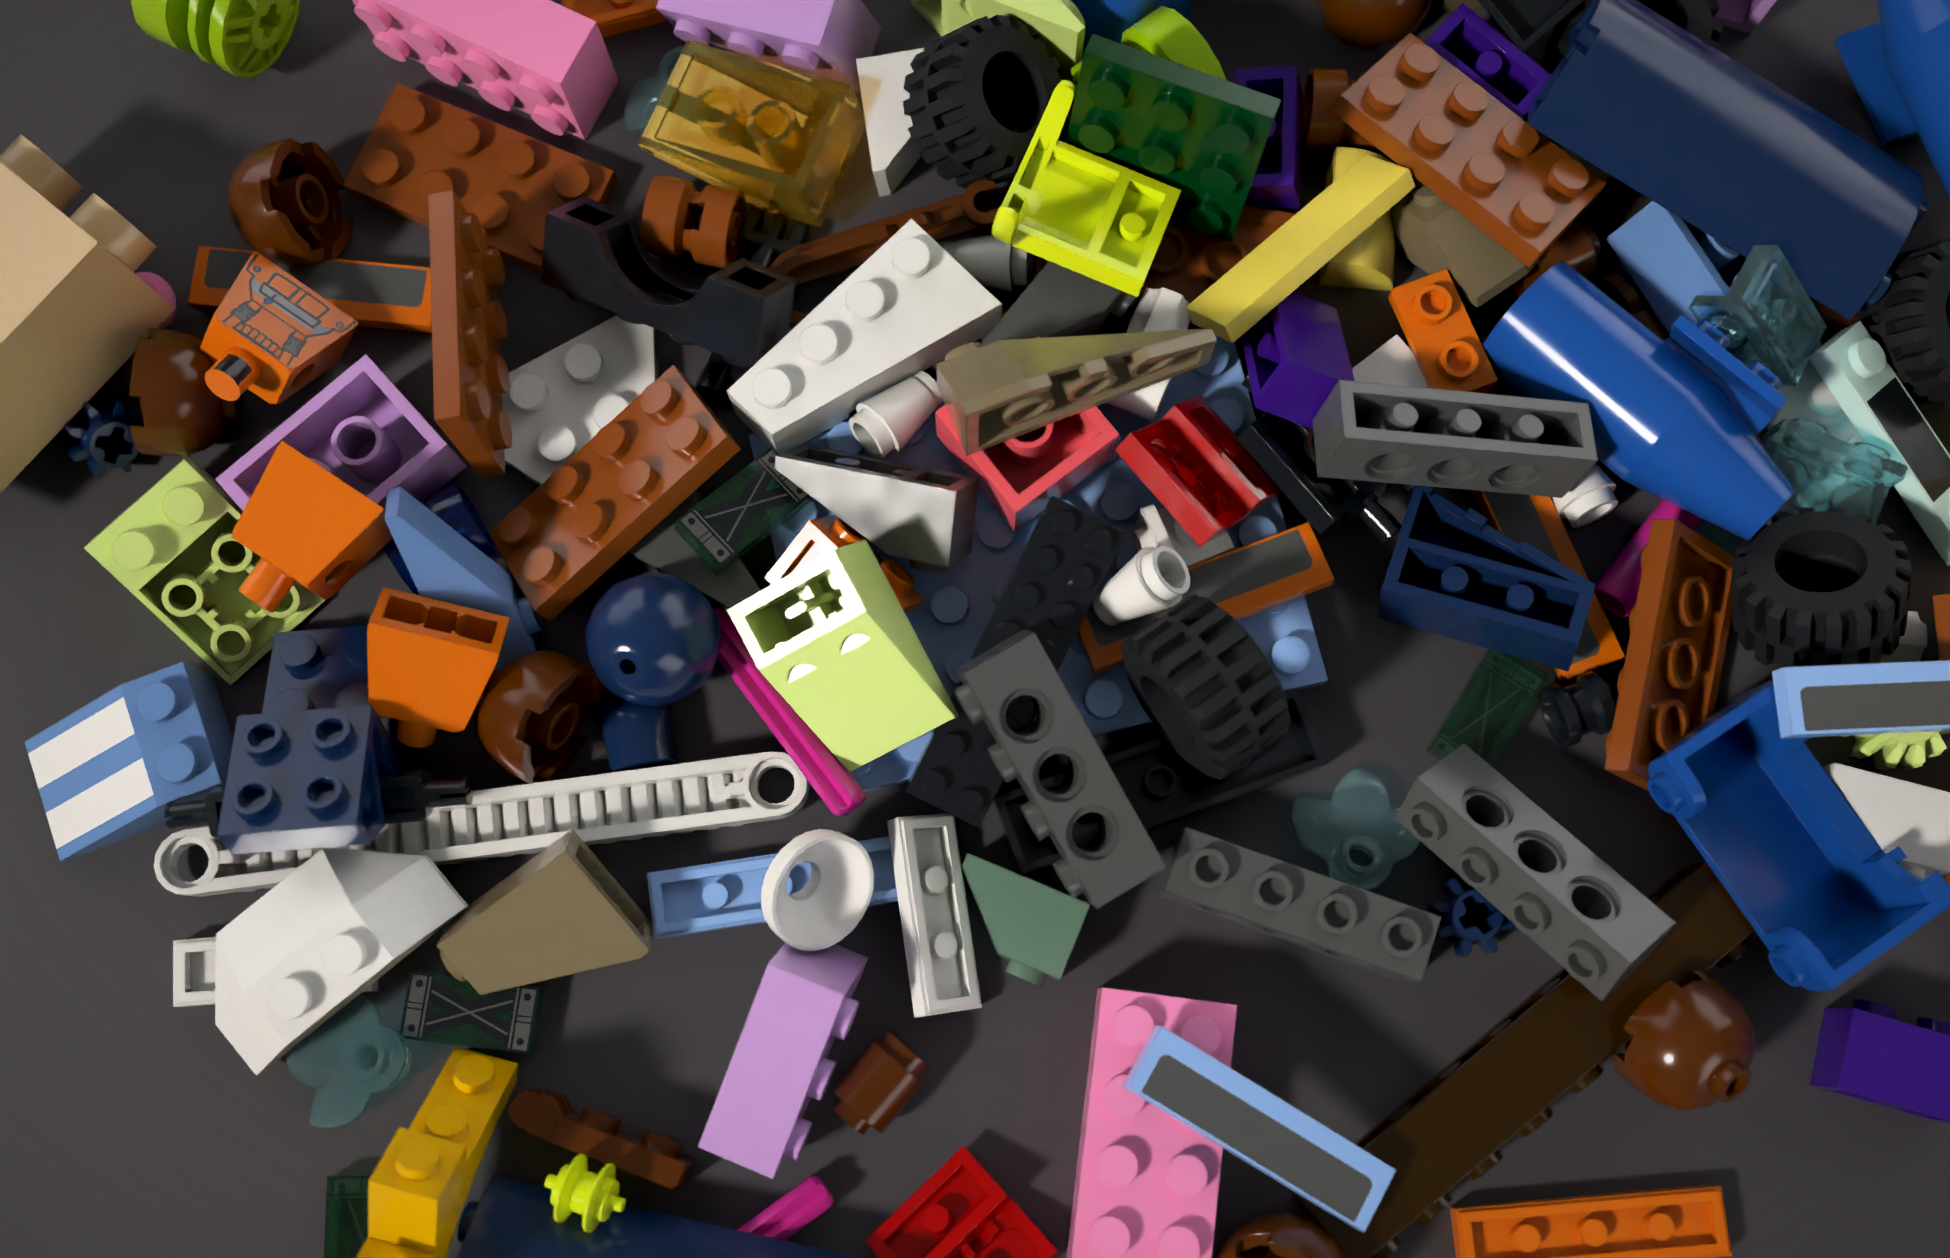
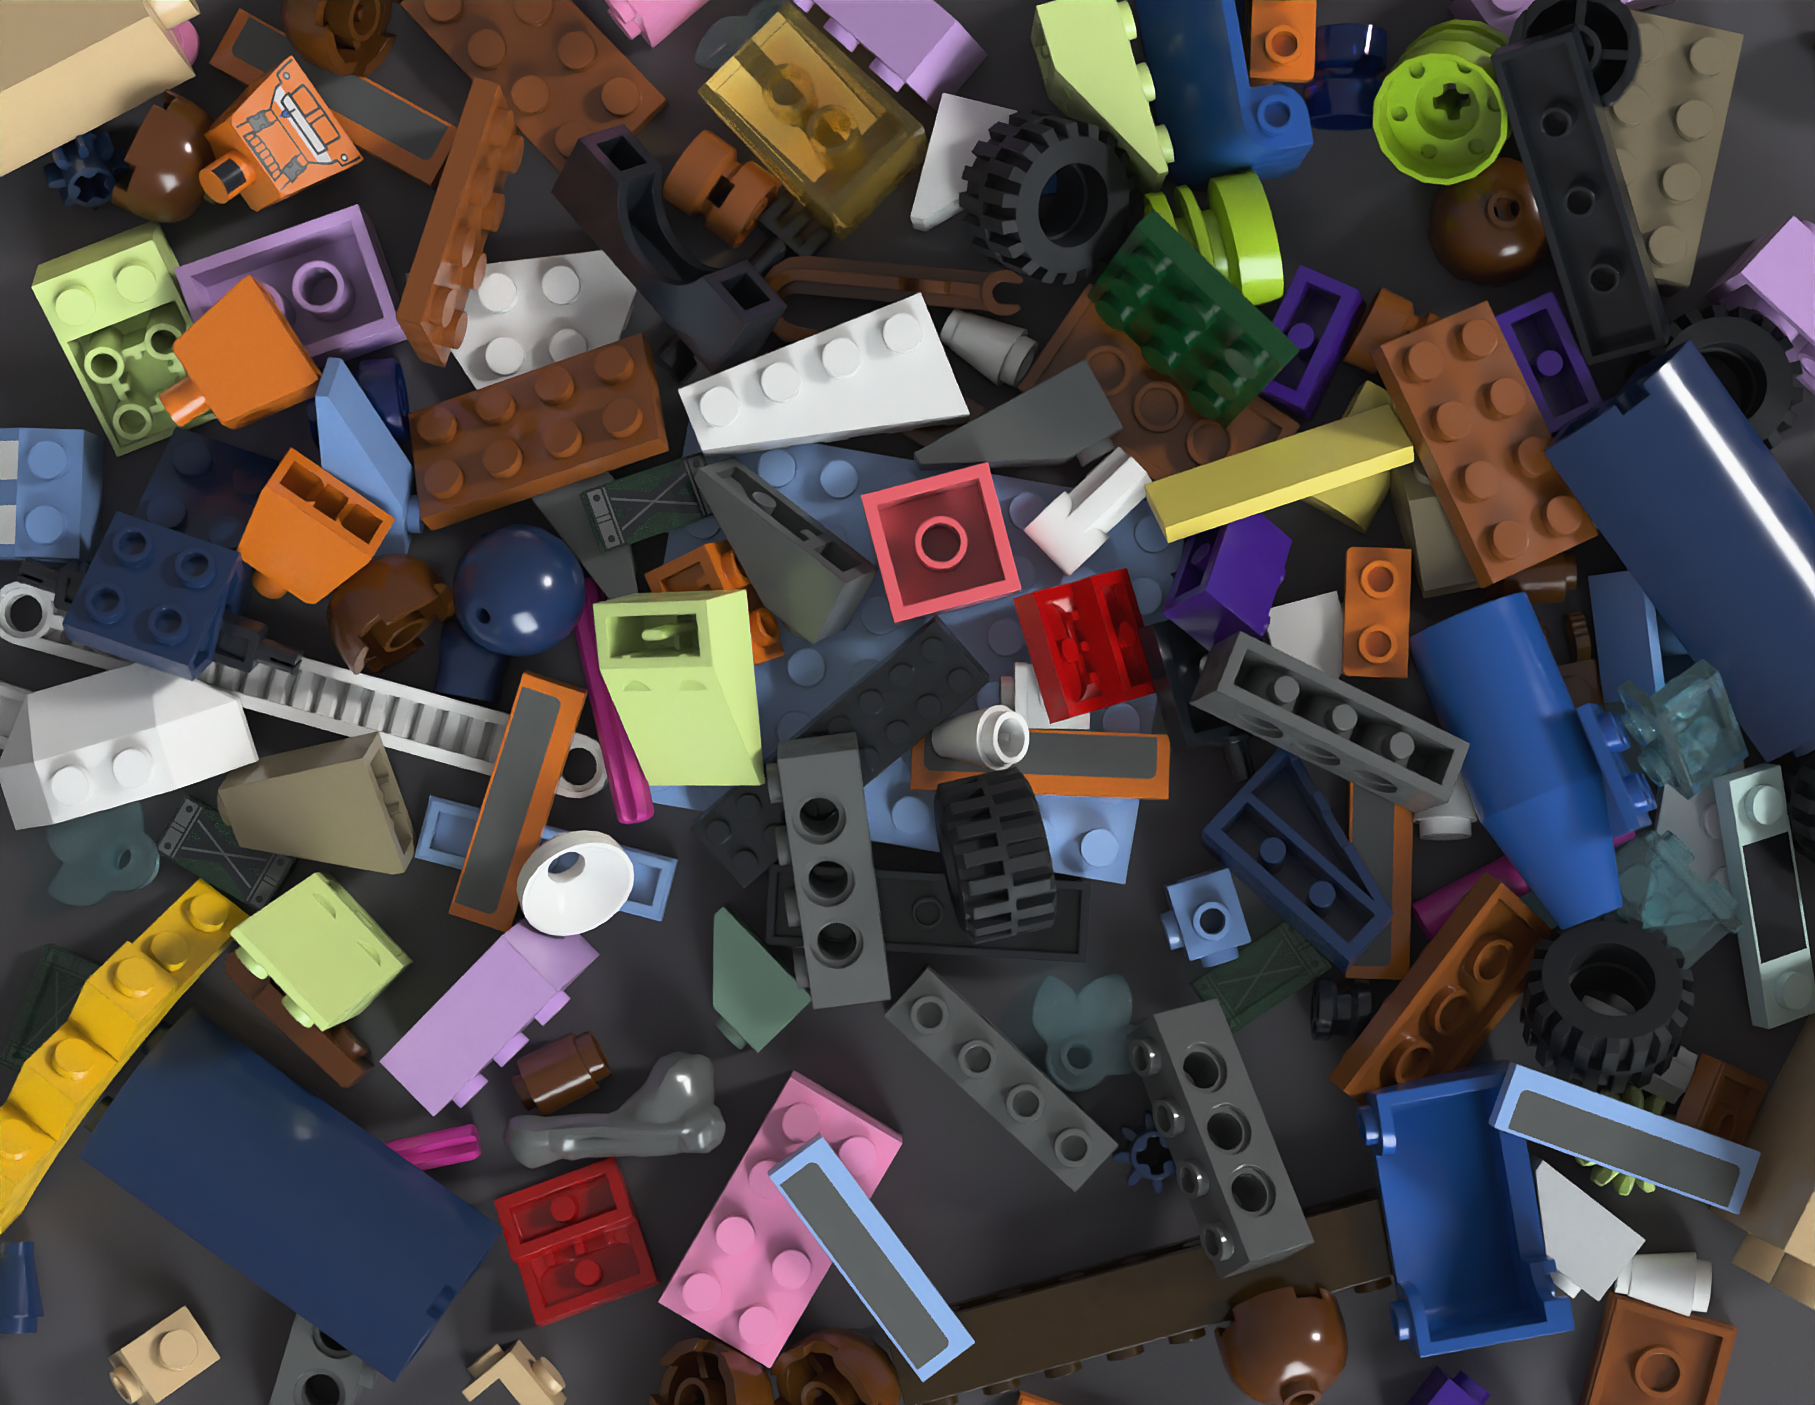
camera: 20 degrees right, 10 degrees up
(585, 1193) = (265, 1060): neon yellow wheel -> none
(598, 1059) = (320, 952): none -> yellowish green slope
(730, 837) = (517, 799): none -> tile
(895, 415) = (830, 468): white cone -> none
(934, 914) = (672, 944): white tile -> none
(994, 1085) = (663, 1117): none -> dark grey hair
(1038, 381) = (951, 512): dark tan wedge -> none
(1083, 207) = (1085, 354): neon yellow piece -> none
(1415, 677) = (1205, 917): none -> medium blue brick

